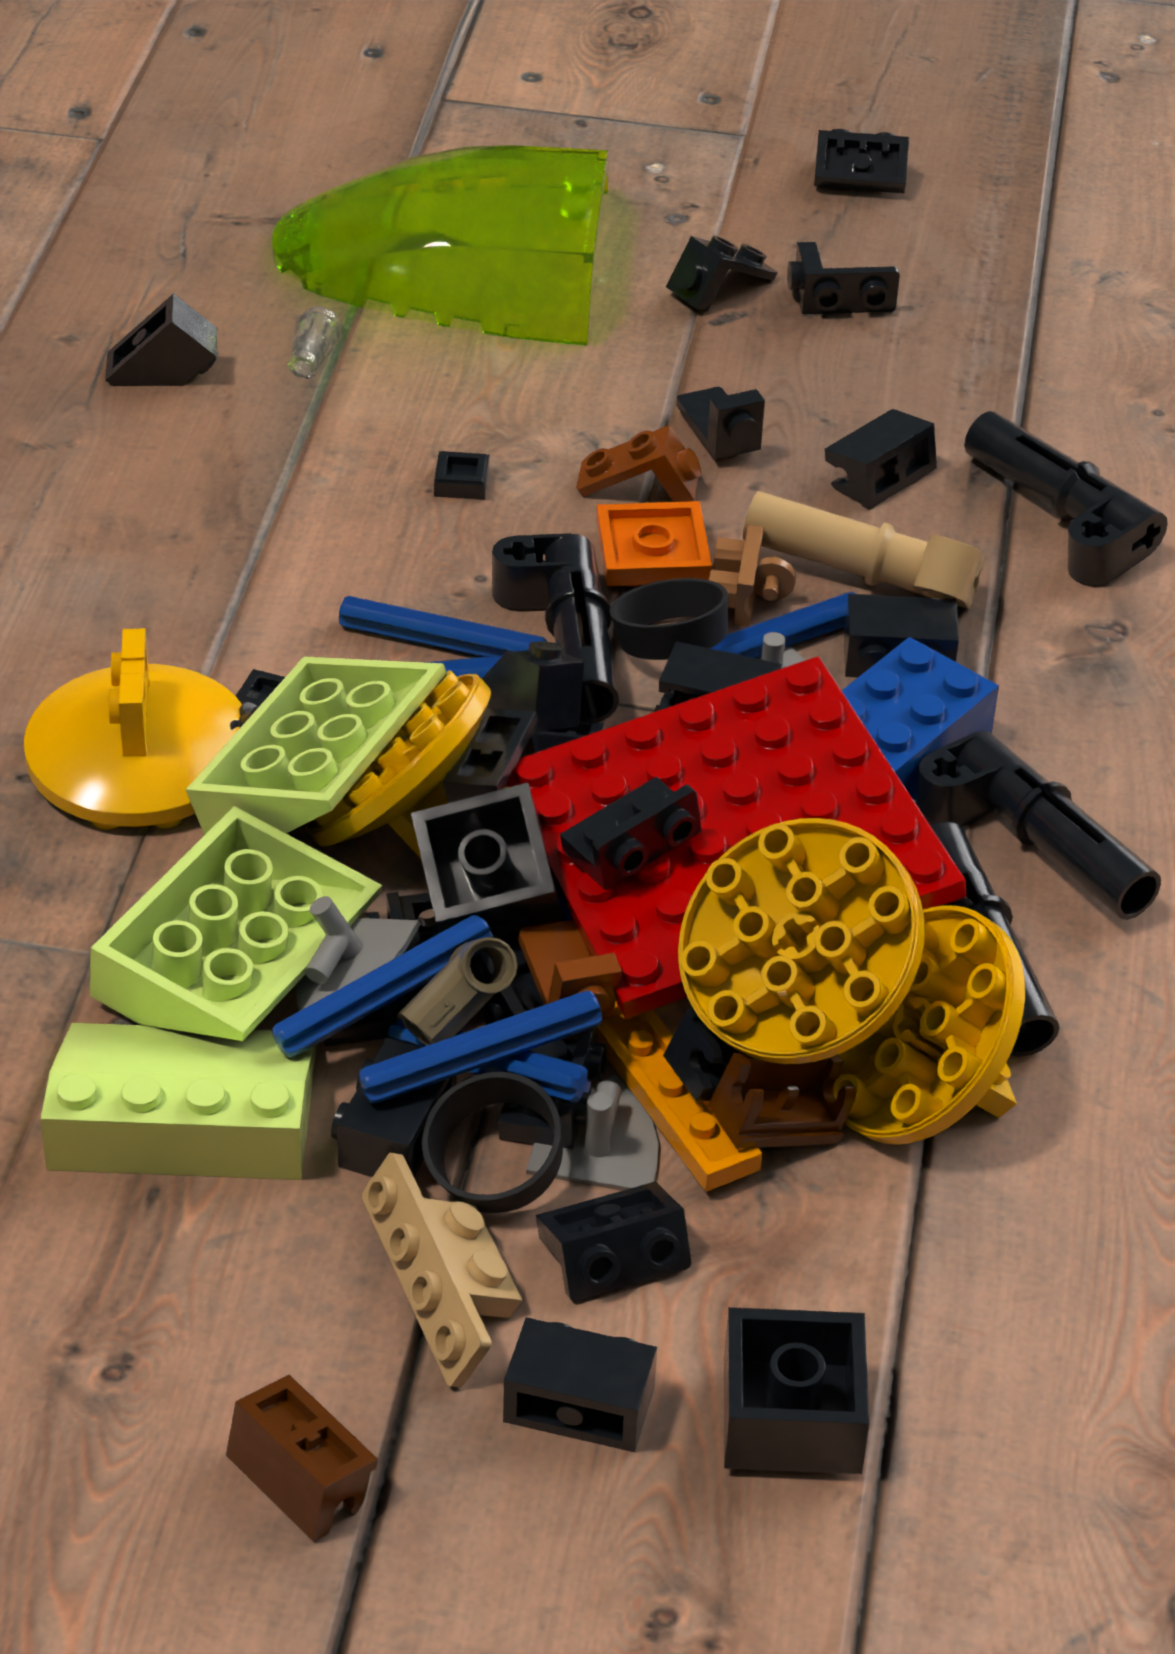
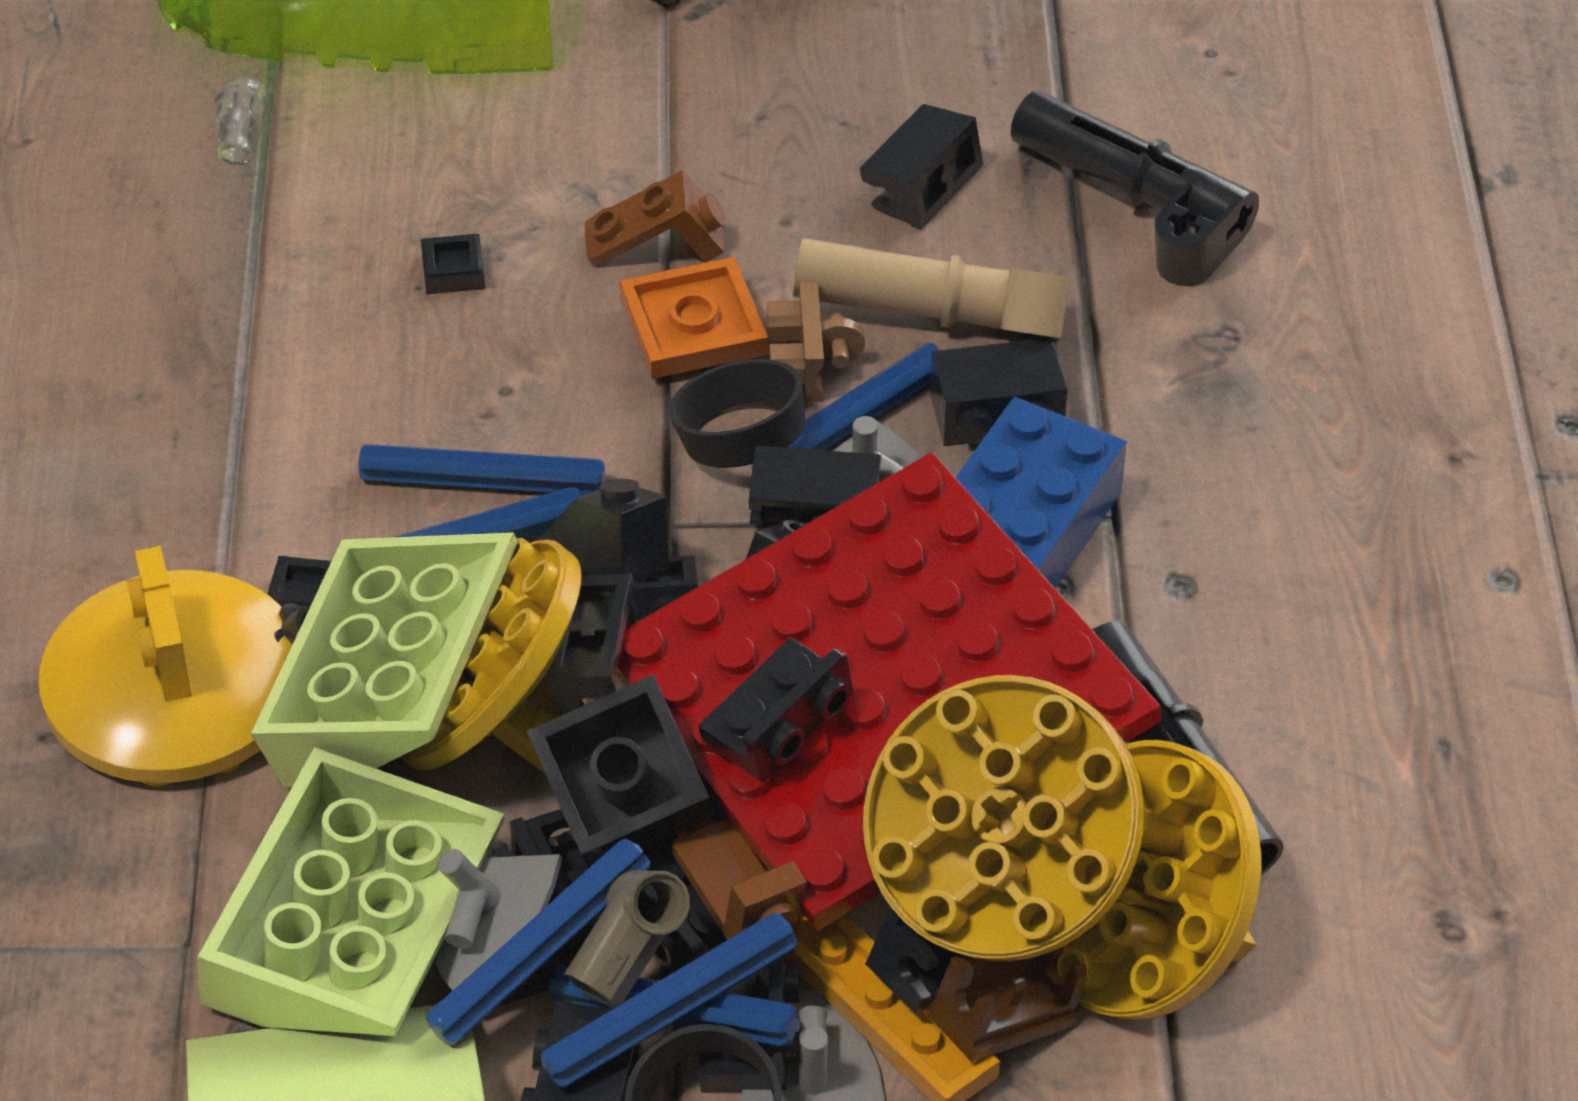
camera: 10 degrees left, 5 degrees up
(164, 348) = (68, 158): black slope -> none
(563, 586) = (631, 422): black piece -> none
(725, 422) = (735, 152): black bracket -> none
(986, 776) = (1203, 586): black piece -> none

